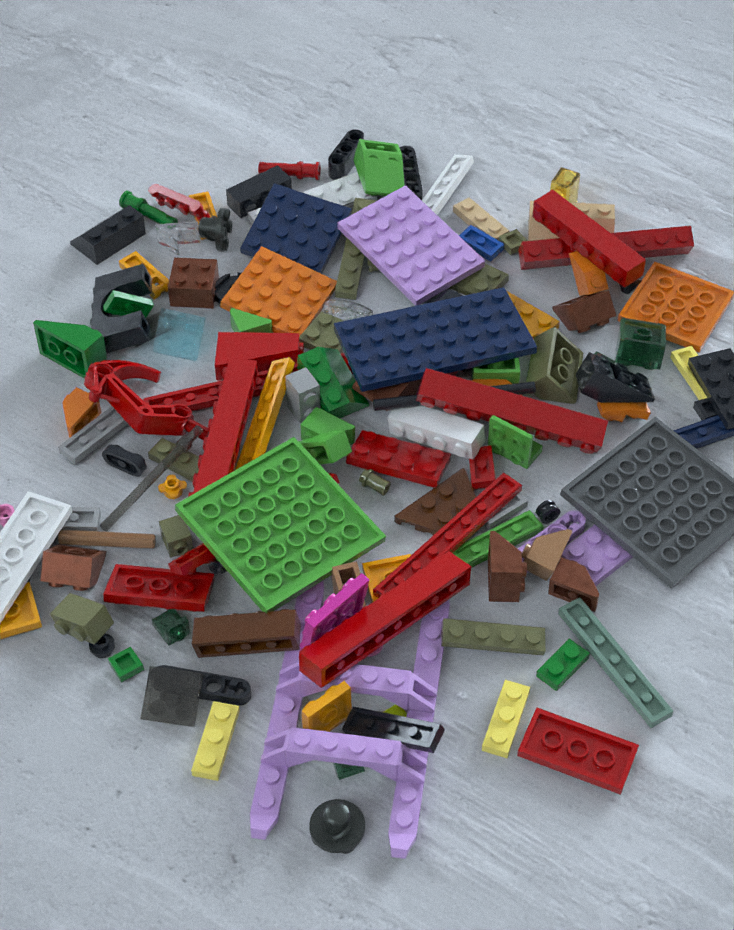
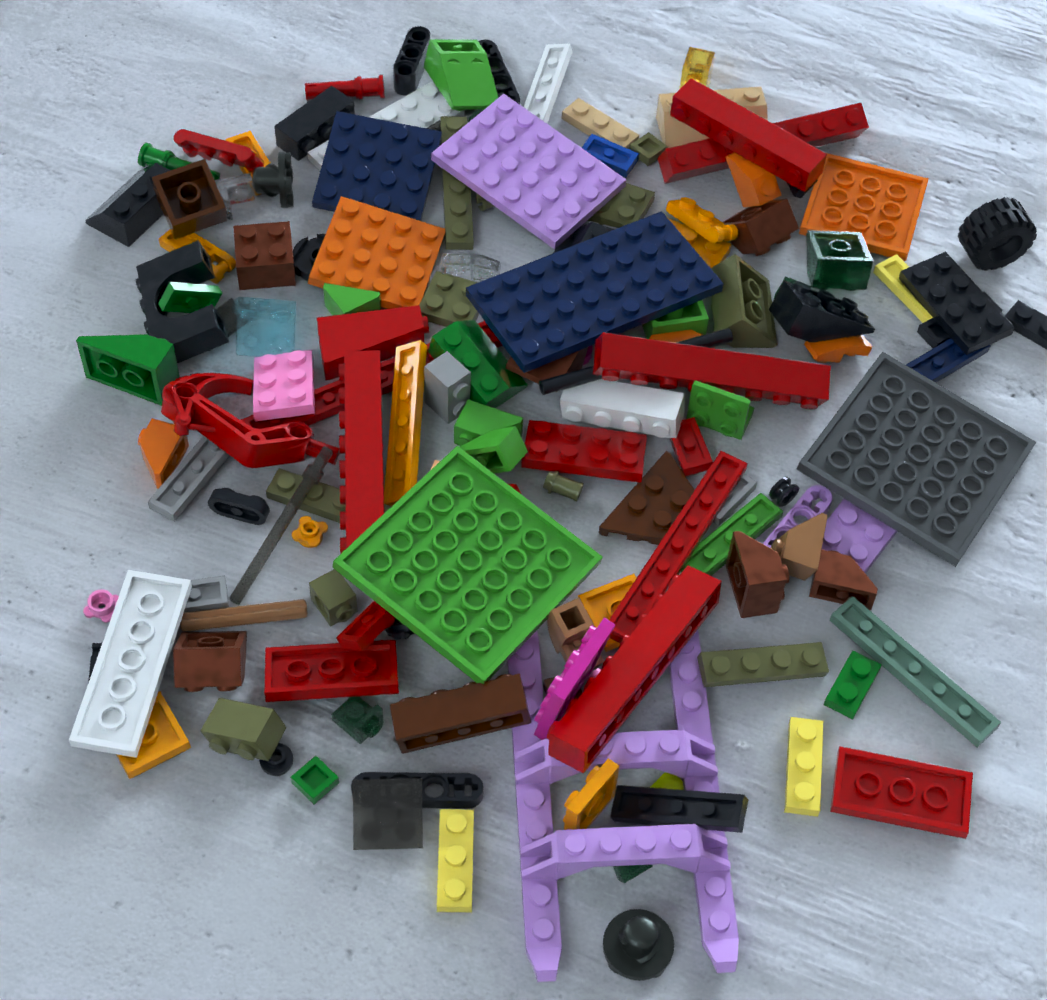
camera: 15 degrees left, 5 degrees up
(145, 233) = (189, 198): none -> reddish brown brick
(181, 378) = (283, 385): none -> bright pink plate
(539, 300) = (701, 220): none -> light orange plate

